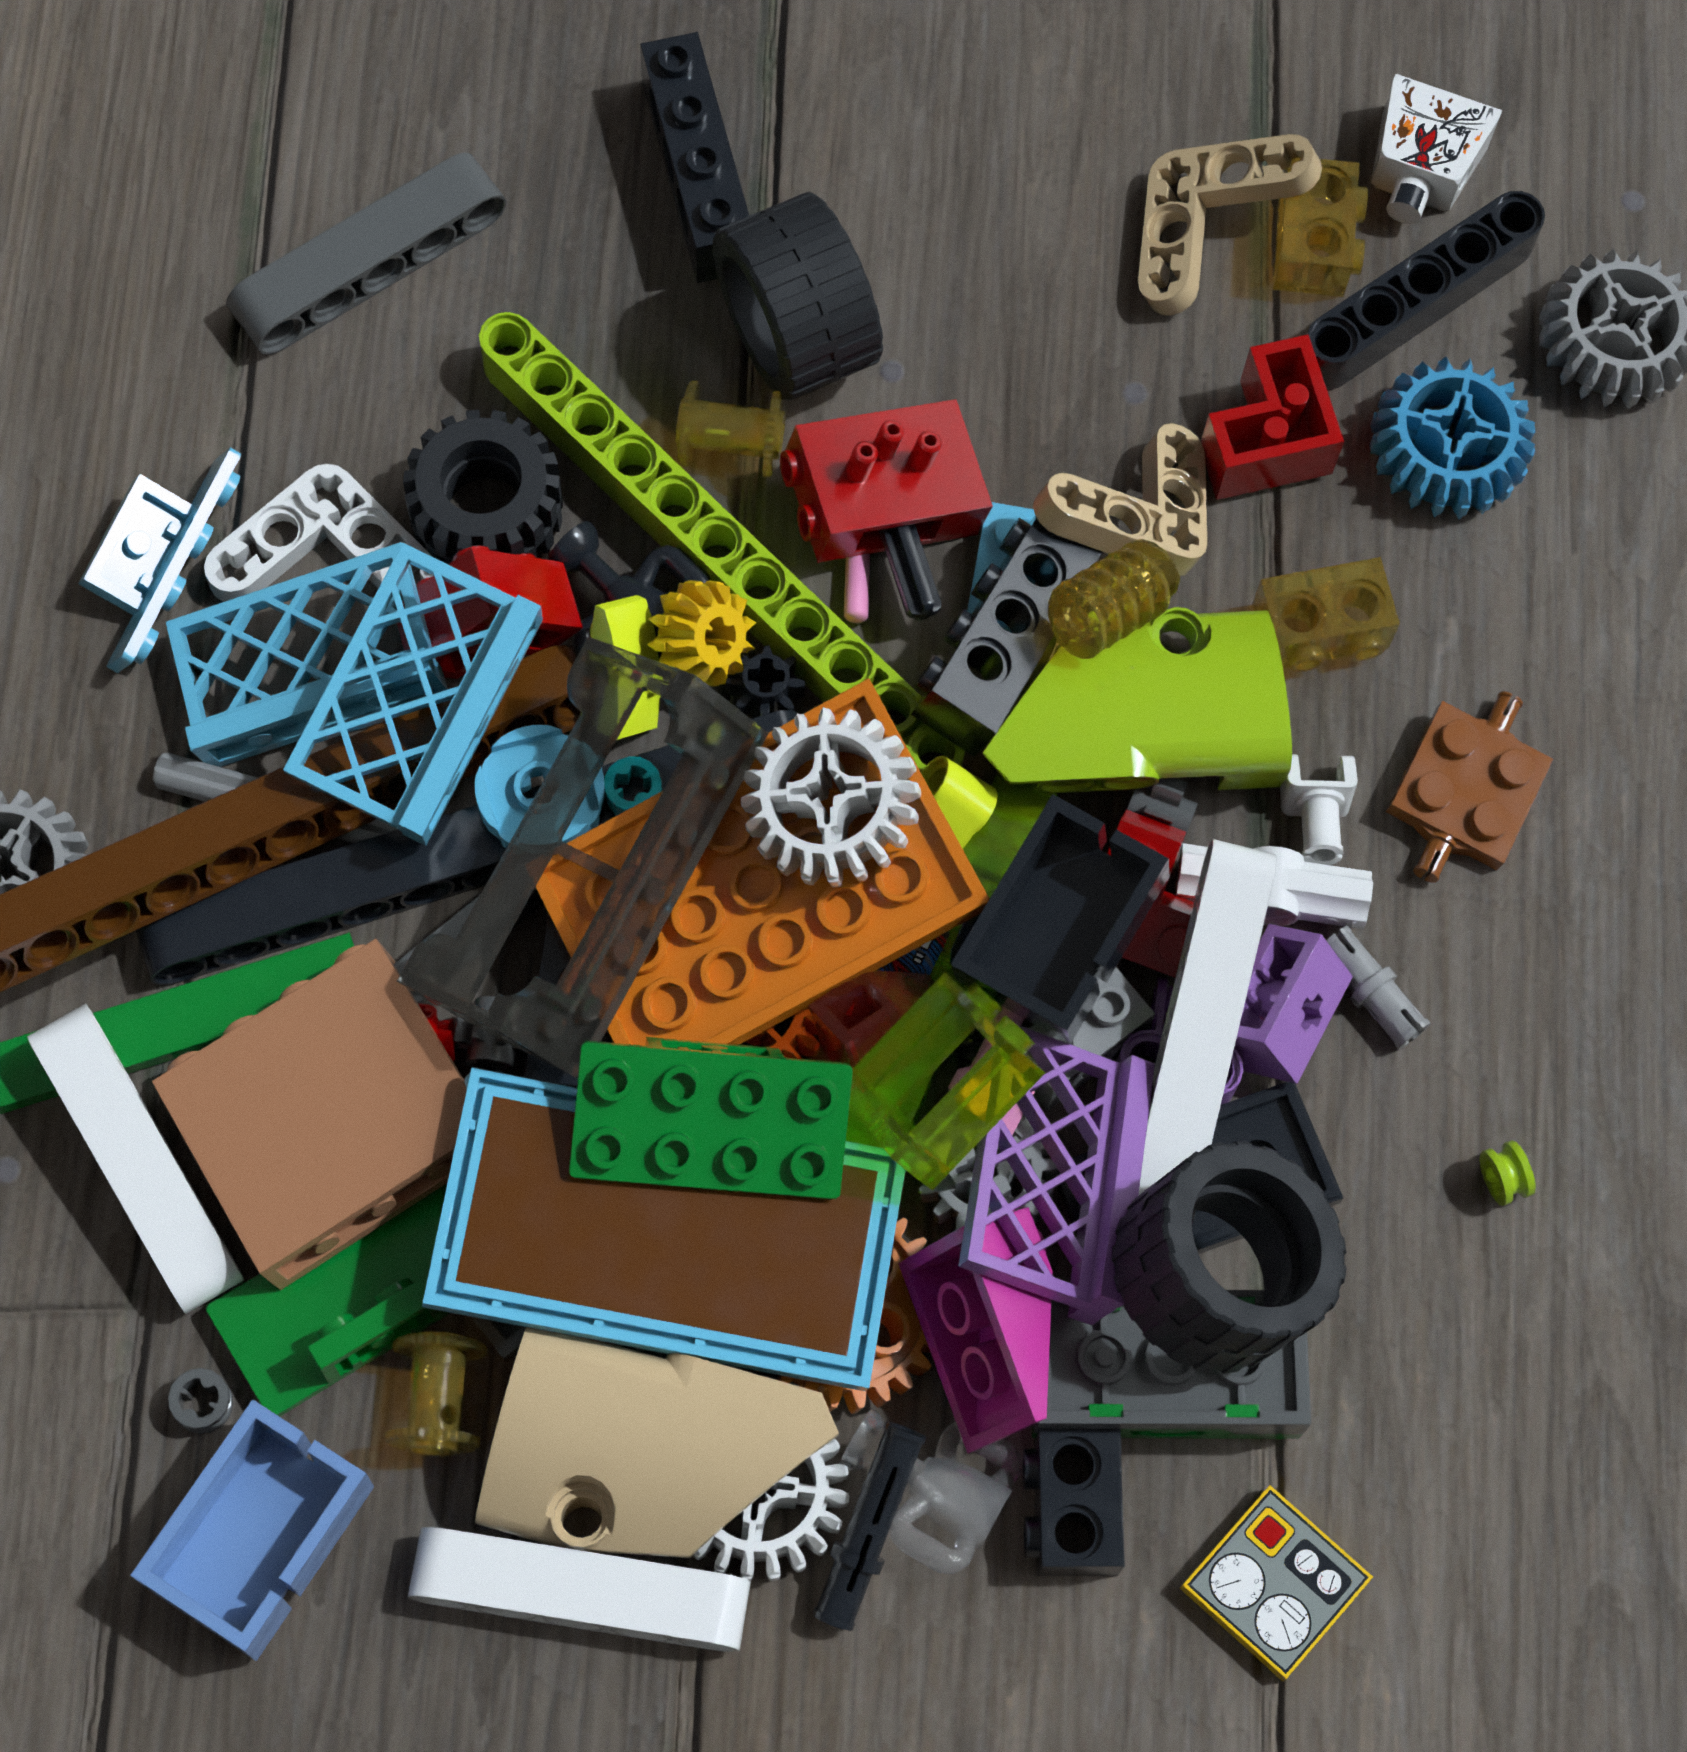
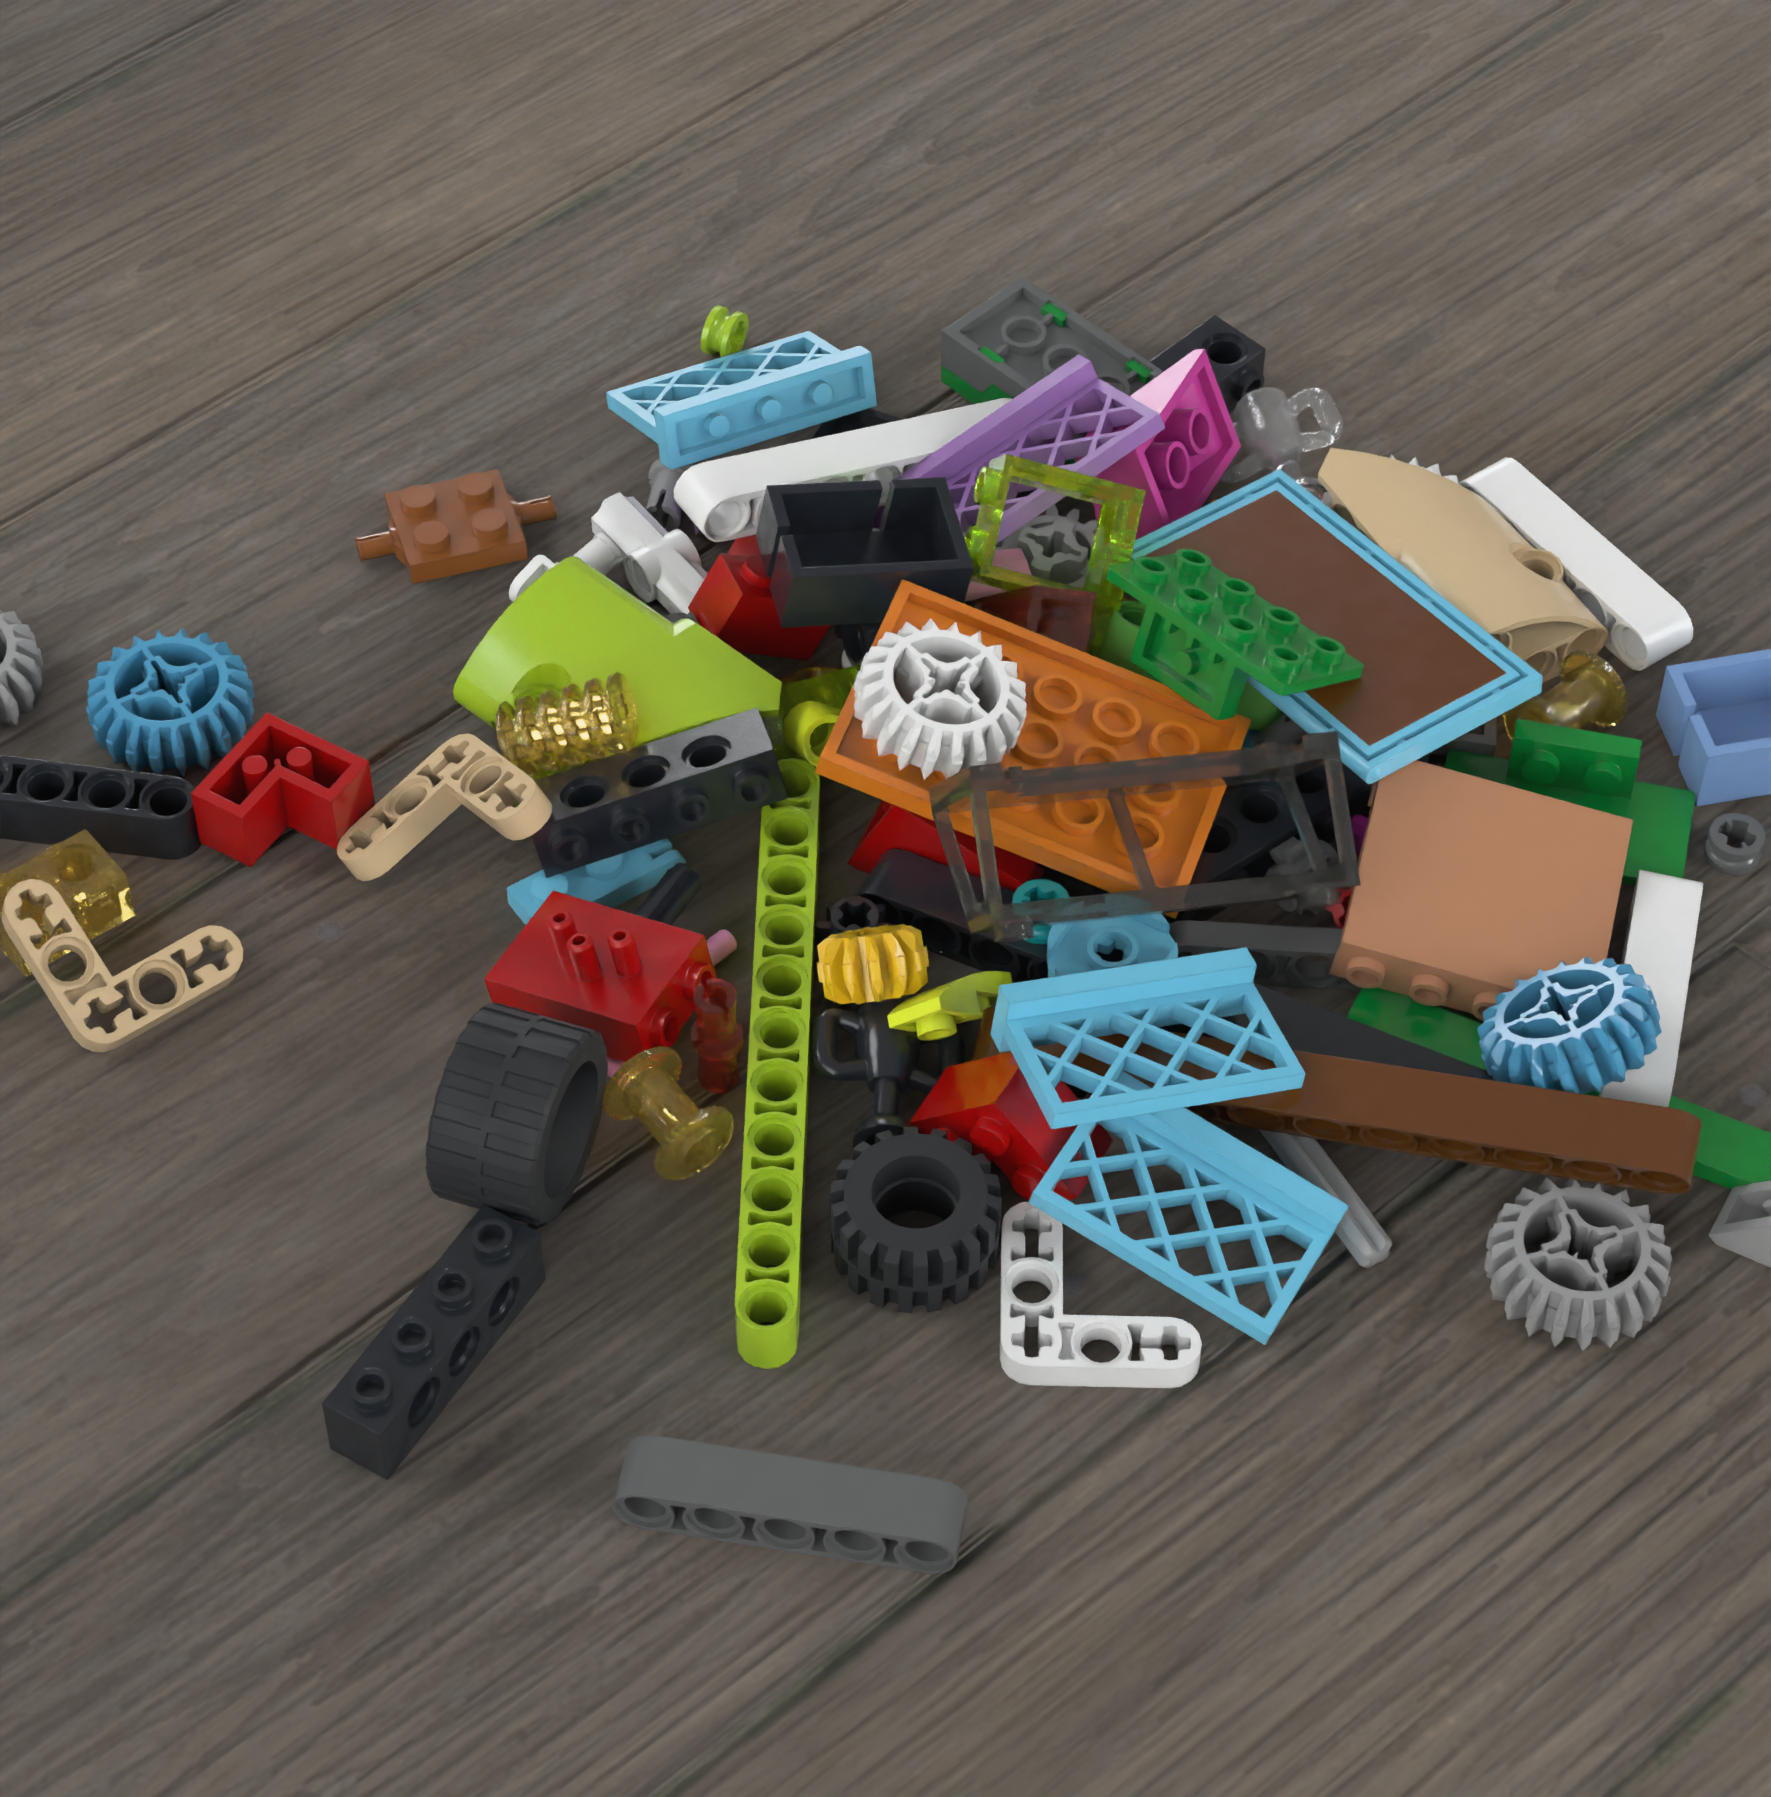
camera: 130 degrees left, 20 degrees down
(147, 548) = (1218, 1401): bracket -> none
(176, 1021) = (1571, 1027): none -> dark azure gear
(753, 494) = (717, 1035): none -> clear red pin
(868, 1528) = (1311, 449): black pin -> none
(1276, 1583) = (1122, 279): tile -> none
(1279, 1217) = (989, 318): black tyre -> none
(1320, 601) = (404, 672): clear yellow brick -> none
(1364, 1075) = (747, 397): none -> medium azure fence

